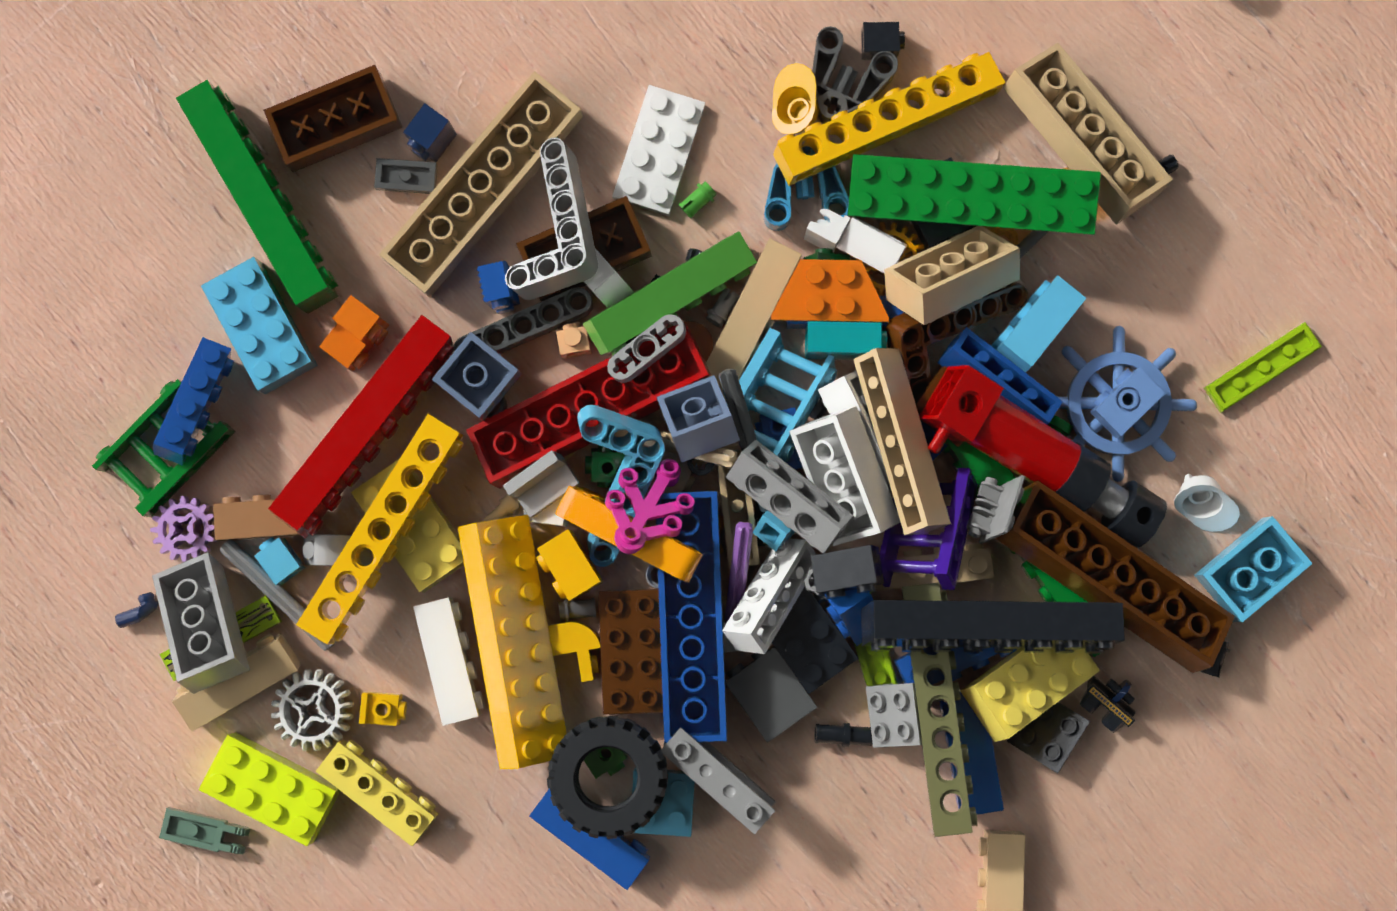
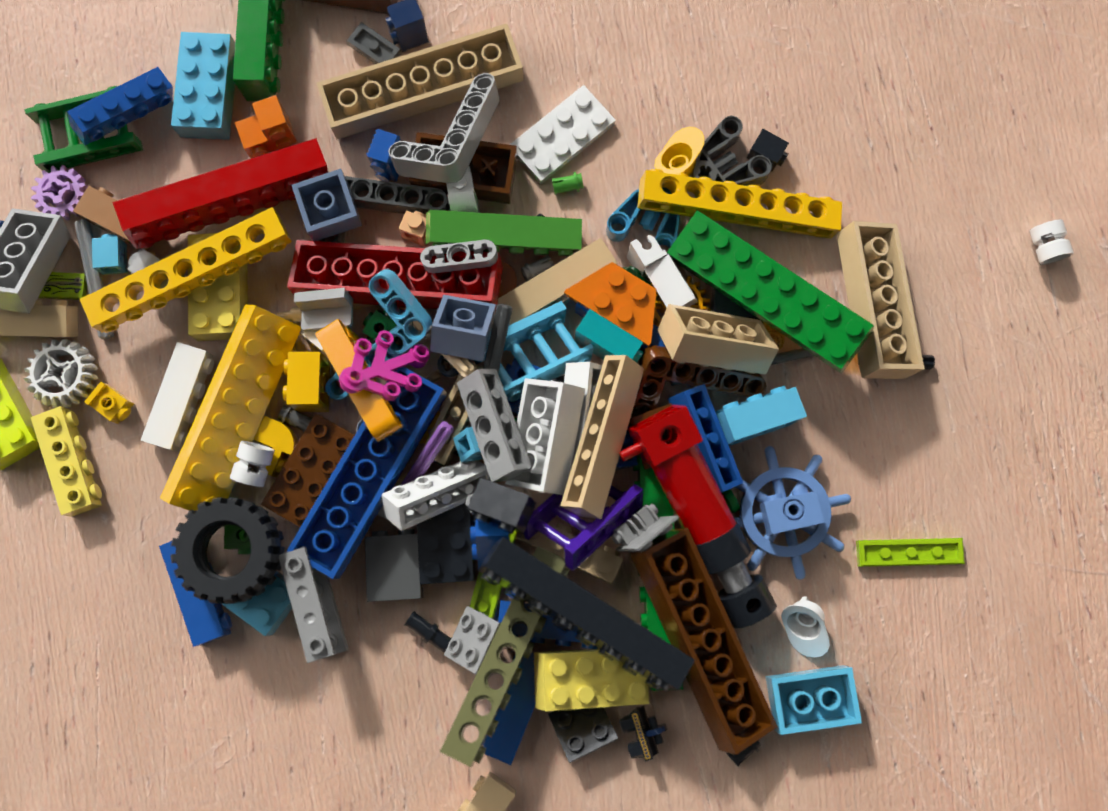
camera: 25 degrees right, 5 degrees down
(571, 679) = (252, 454): none -> white wheel

